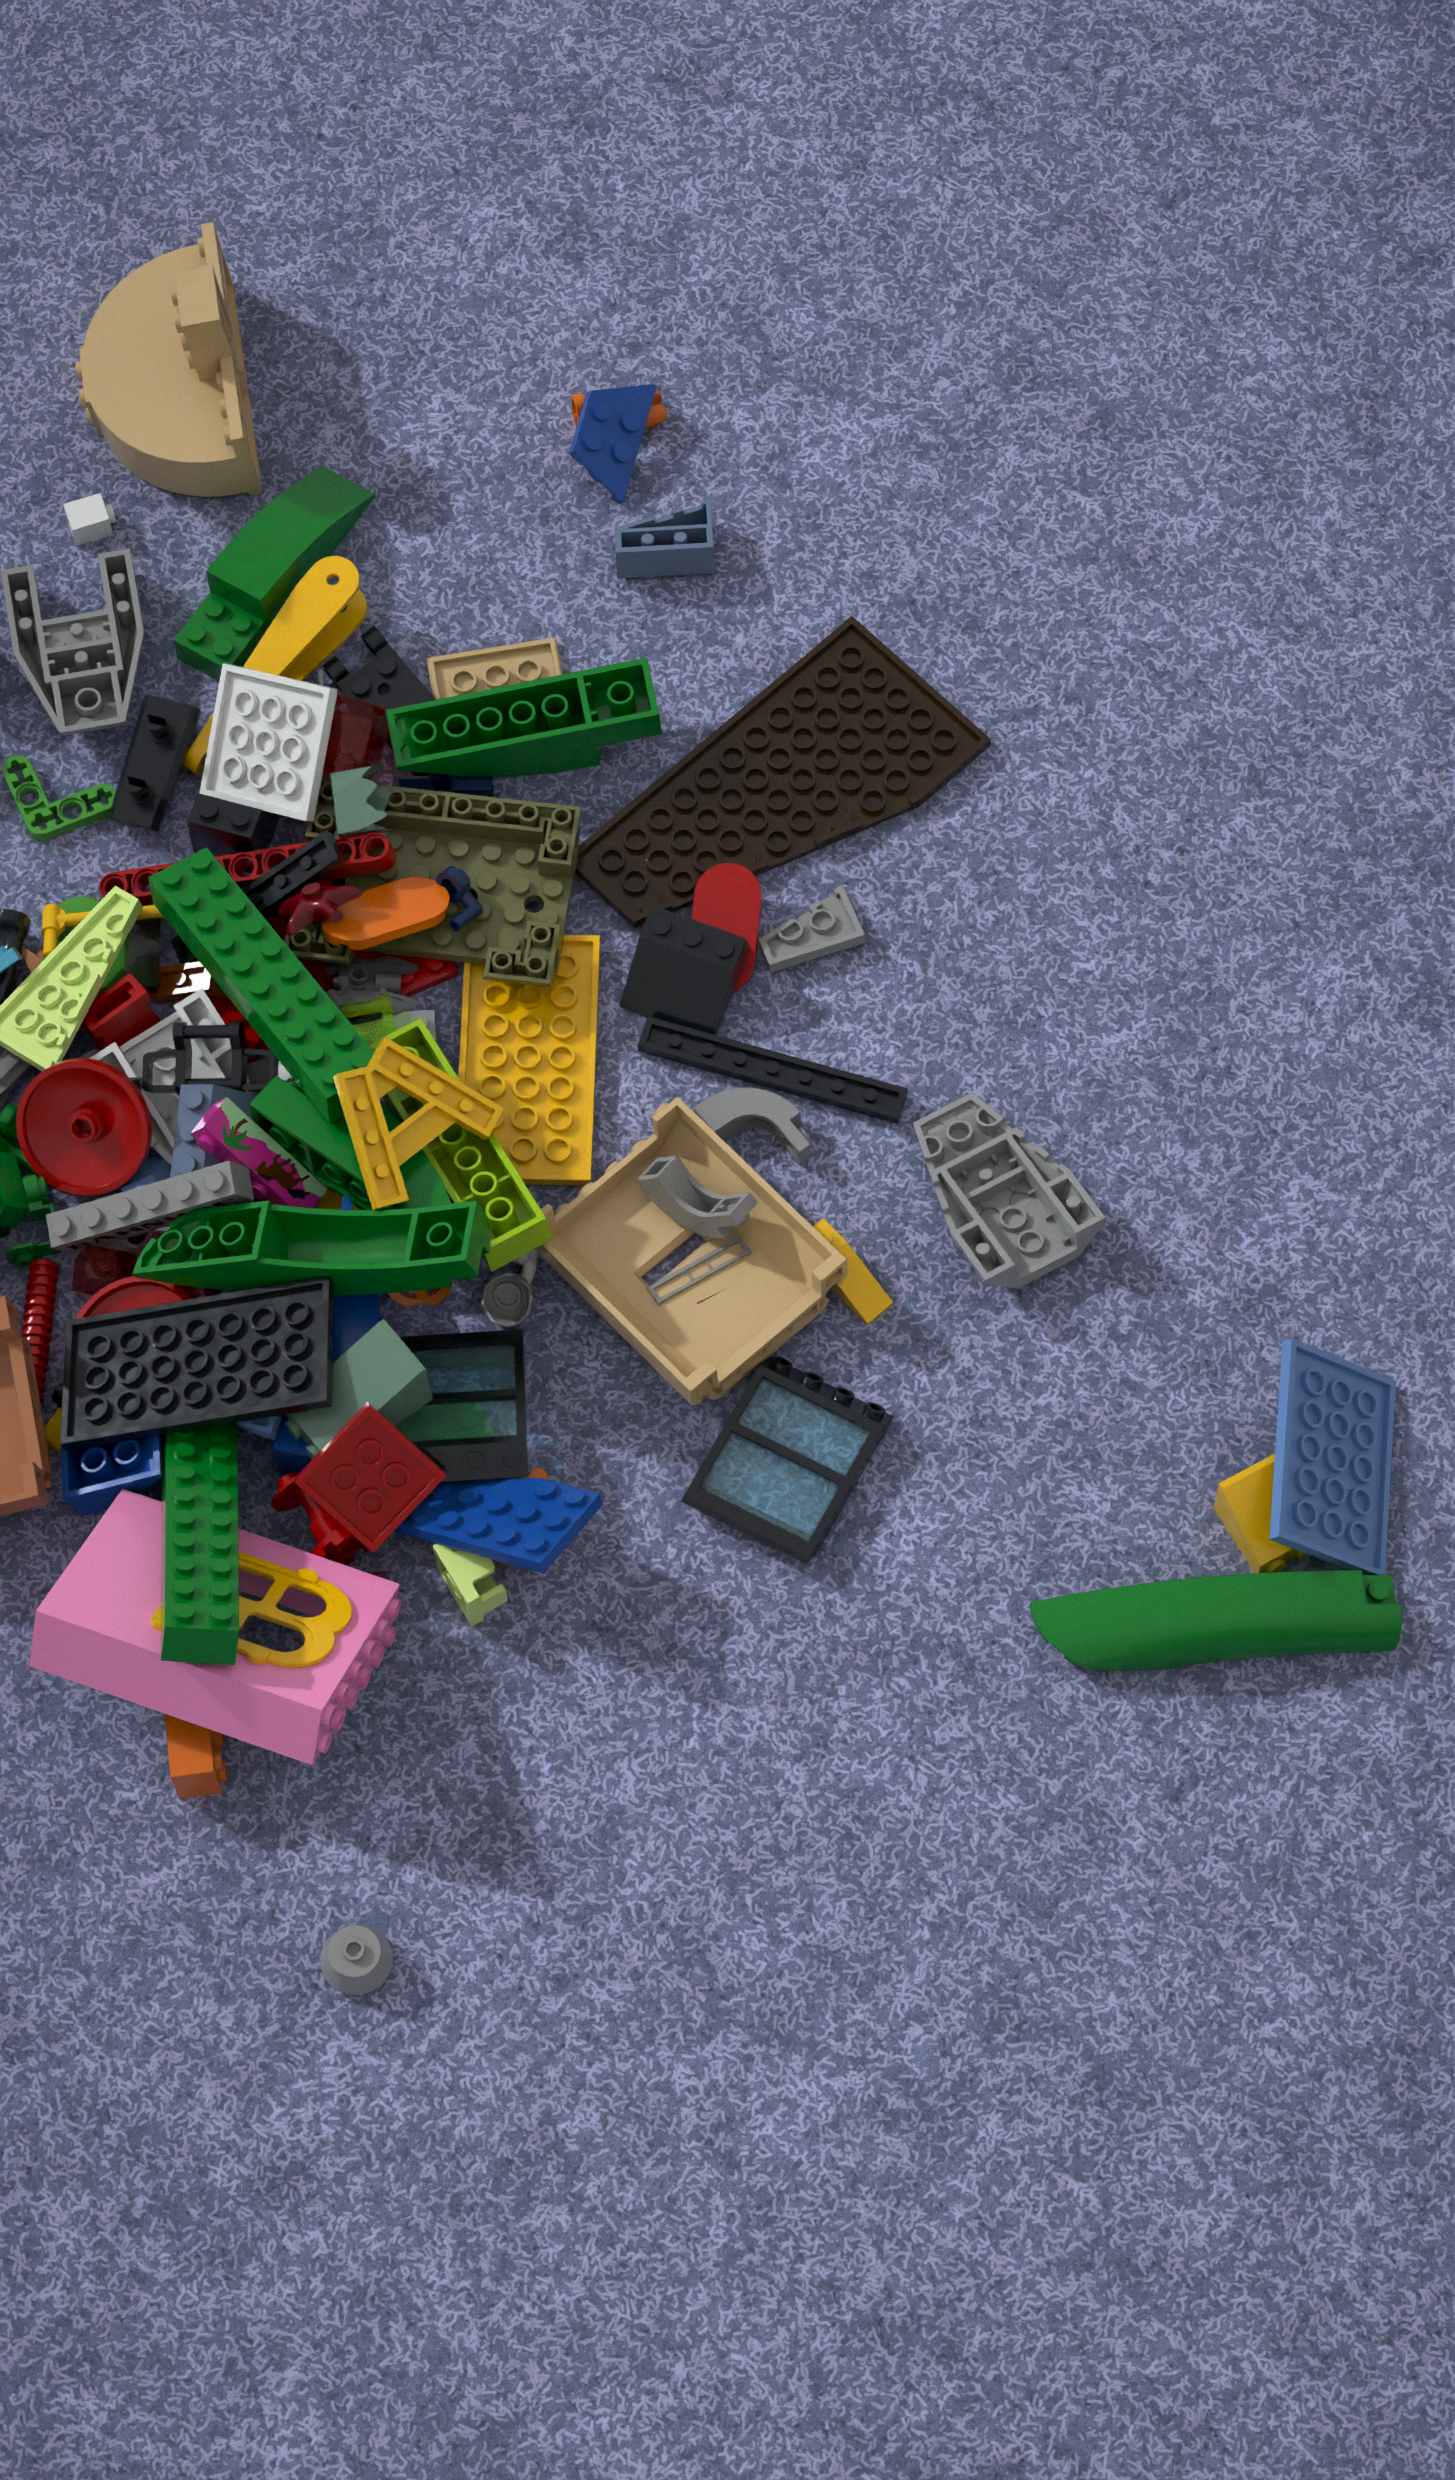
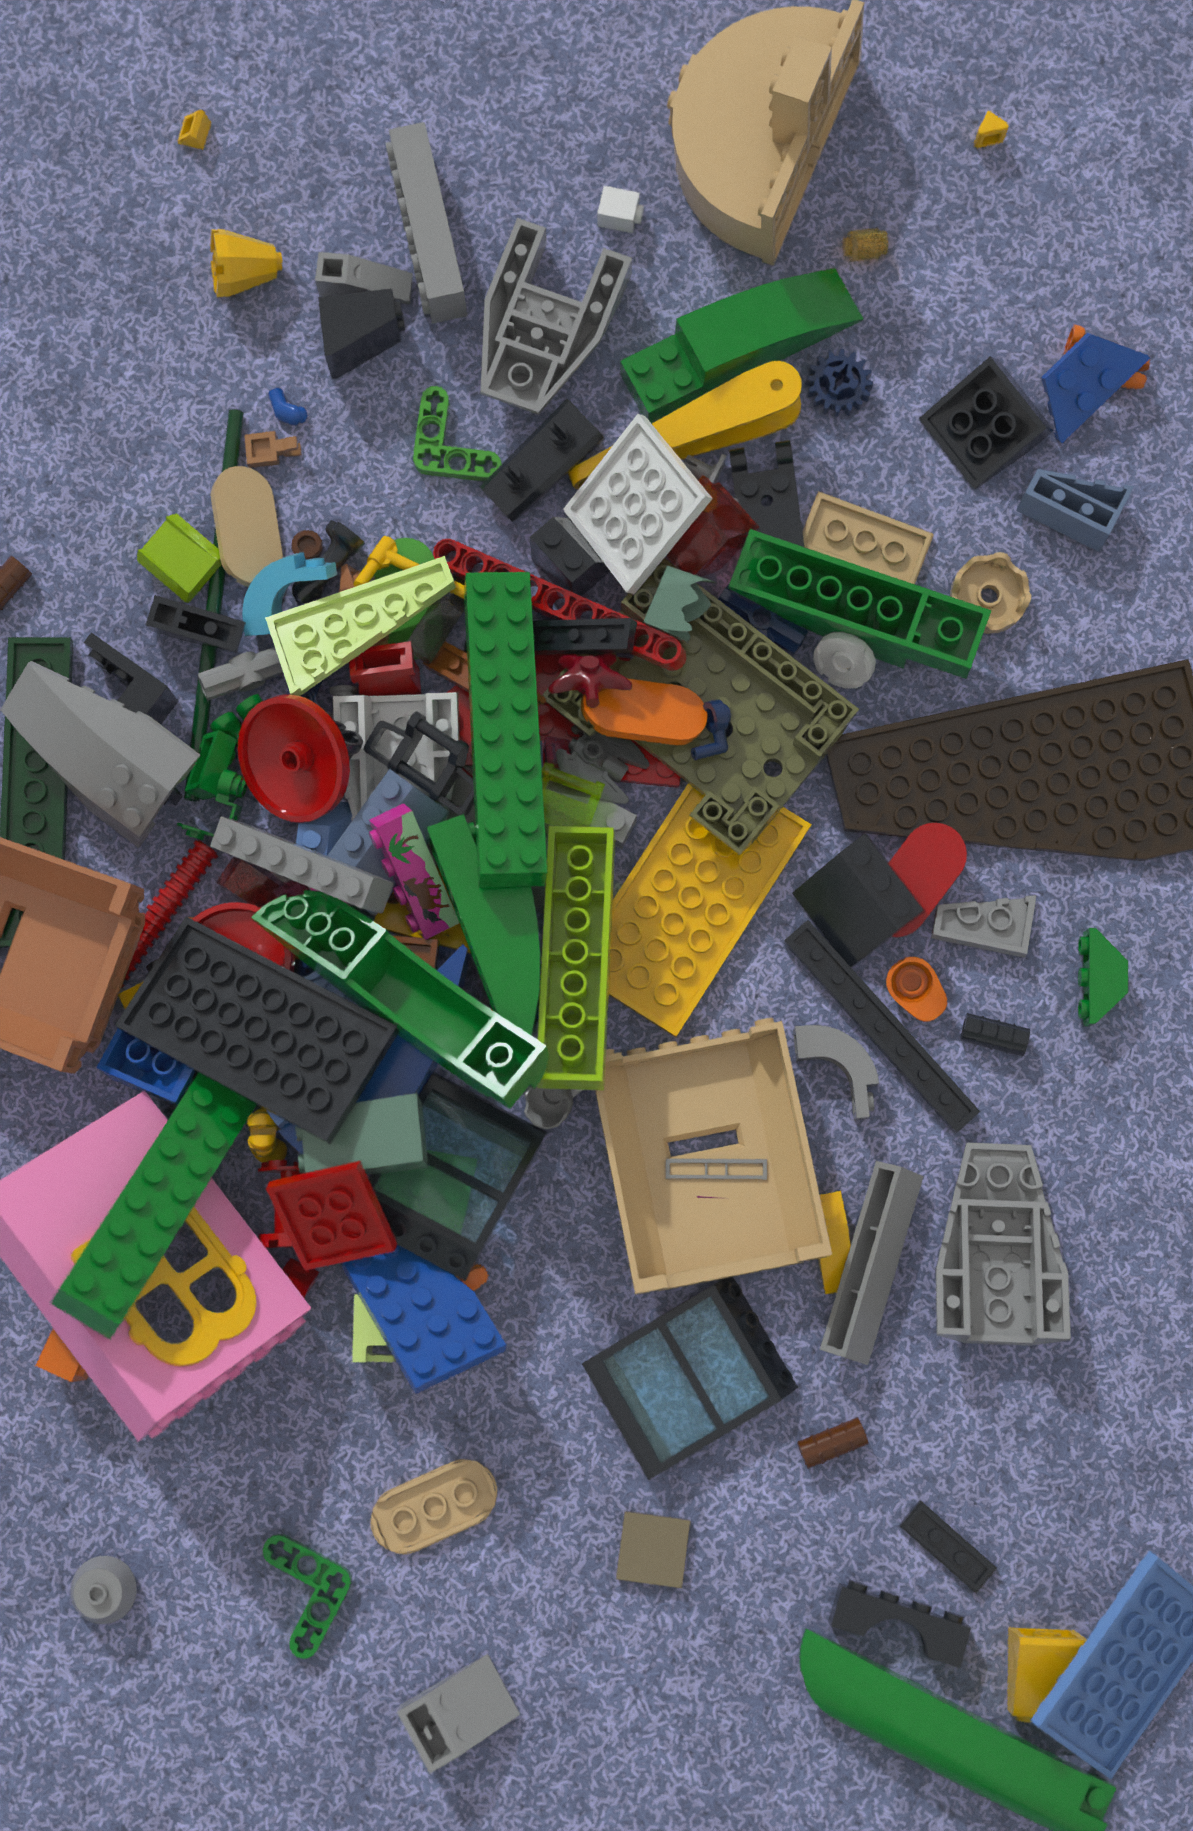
camera: 30 degrees right, 15 degrees up
(257, 1469) = (263, 1138): none -> yellow piece
(337, 430) = (865, 244): none -> clear yellow brick
(383, 1152) = (502, 945): yellow plate -> none
(392, 278) = (991, 131): none -> yellow slope
(403, 560) = (828, 375): none -> dark blue gear
(541, 777) = (844, 660): none -> white tile
(543, 520) = (986, 423): none -> black slope
(554, 1835) = (317, 1580): none -> green beam
(623, 1709) = (434, 1506): none -> tan tile
(643, 639) = (1004, 578): none -> tan plate
(692, 1204) = (743, 1113): light grey arch -> none
(757, 1866) = (457, 1713): none -> light grey slope
(784, 1016) = (917, 988): none -> orange piece
(849, 1627) = (653, 1549): none -> dark tan tile
(880, 1019) = (995, 1034): none -> black axle
(891, 1266) = (871, 1262): none -> light grey brick
(943, 917) = (1102, 976): none -> green slope
(954, 1441) = (832, 1443): none -> reddish brown axle
(1115, 1470) = (947, 1546): none -> black tile
(1153, 1543) = (857, 1611): none -> black arch

